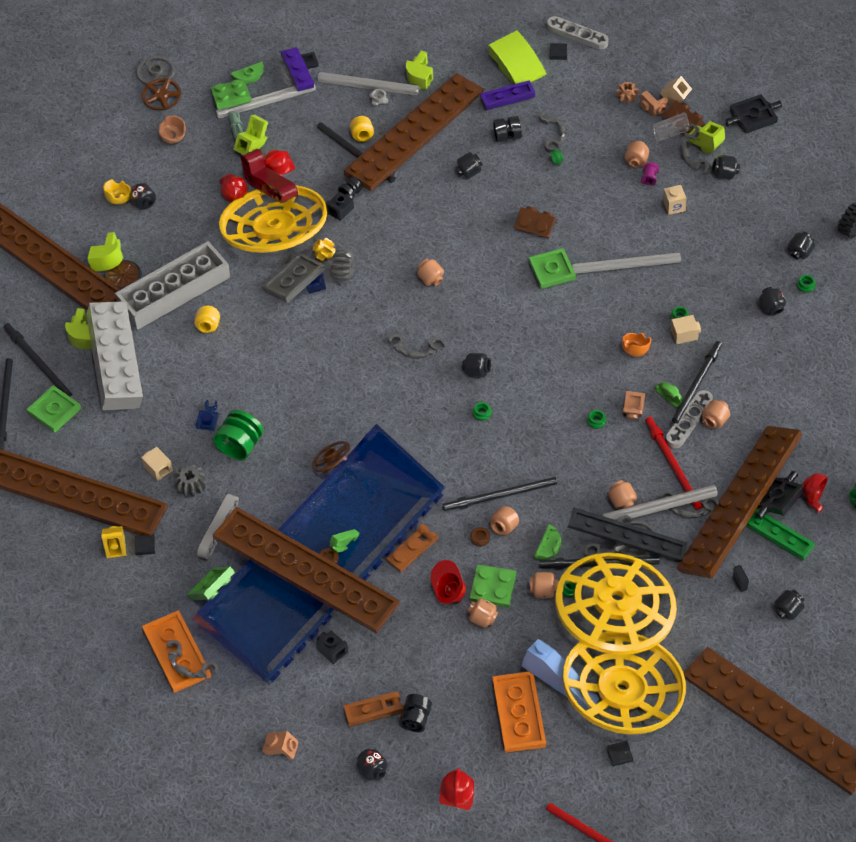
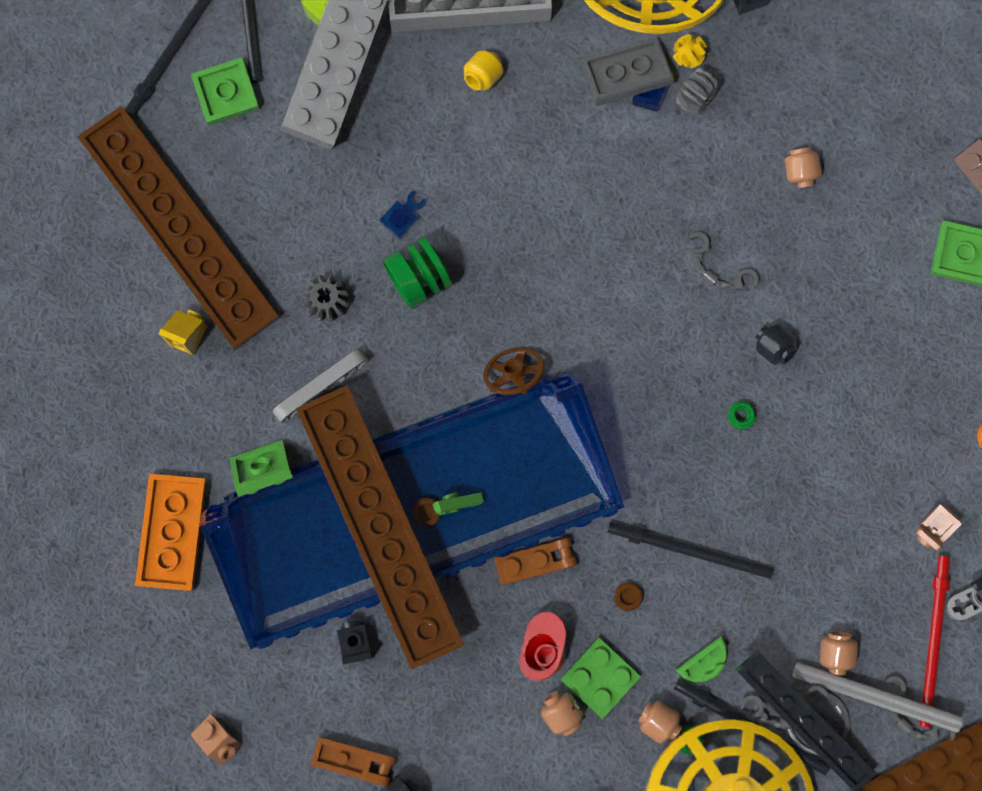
camera: 30 degrees right, 25 degrees up
(144, 544) = (222, 355): black tile -> none
(156, 463) = (299, 249): tan brick -> none
(184, 671) = (159, 571): dark grey piece -> none
(469, 165) = (954, 29): black head -> none
(504, 520) = (669, 596): nougat head -> none
(596, 414) = (884, 510): green plate -> none

